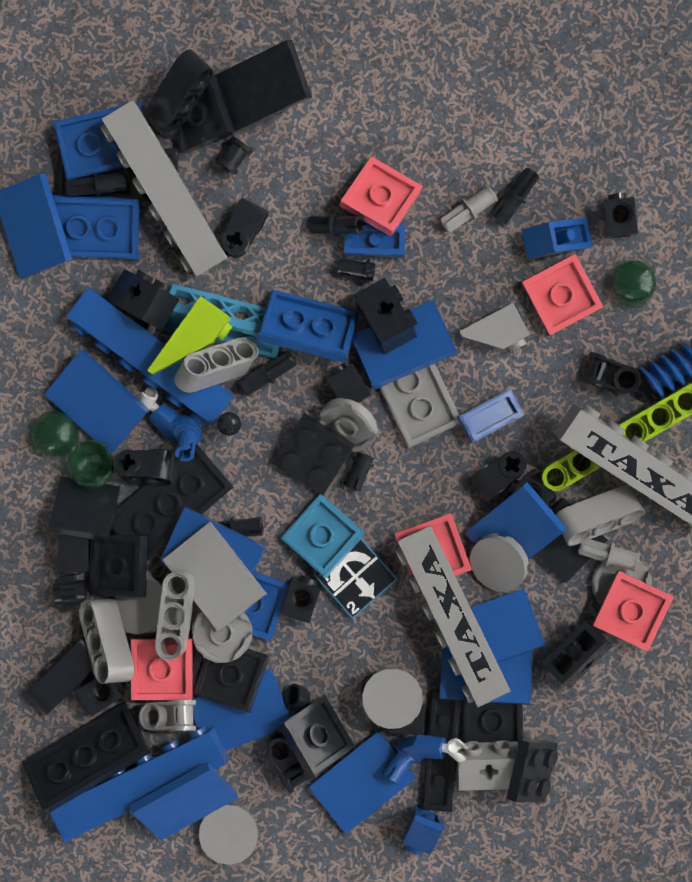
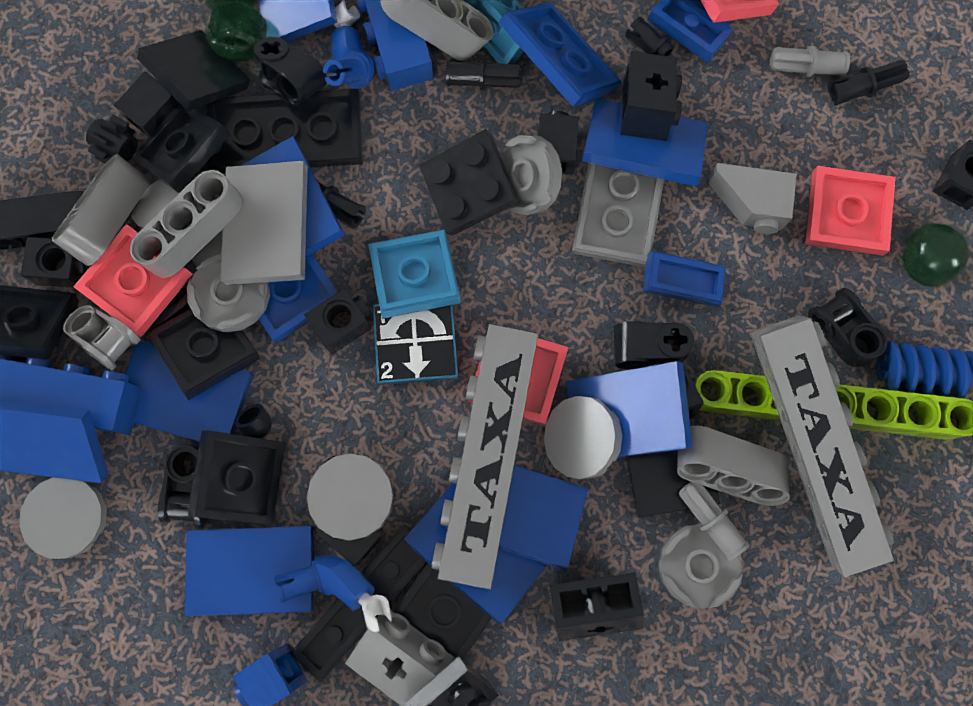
camera: 35 degrees right, 10 degrees down
(229, 423) = (405, 86): black axle -> none
(359, 471) = (504, 234): black pin -> none
(557, 238) = (885, 146): blue slope -> none
(632, 610) = (697, 604): coral plate -> none

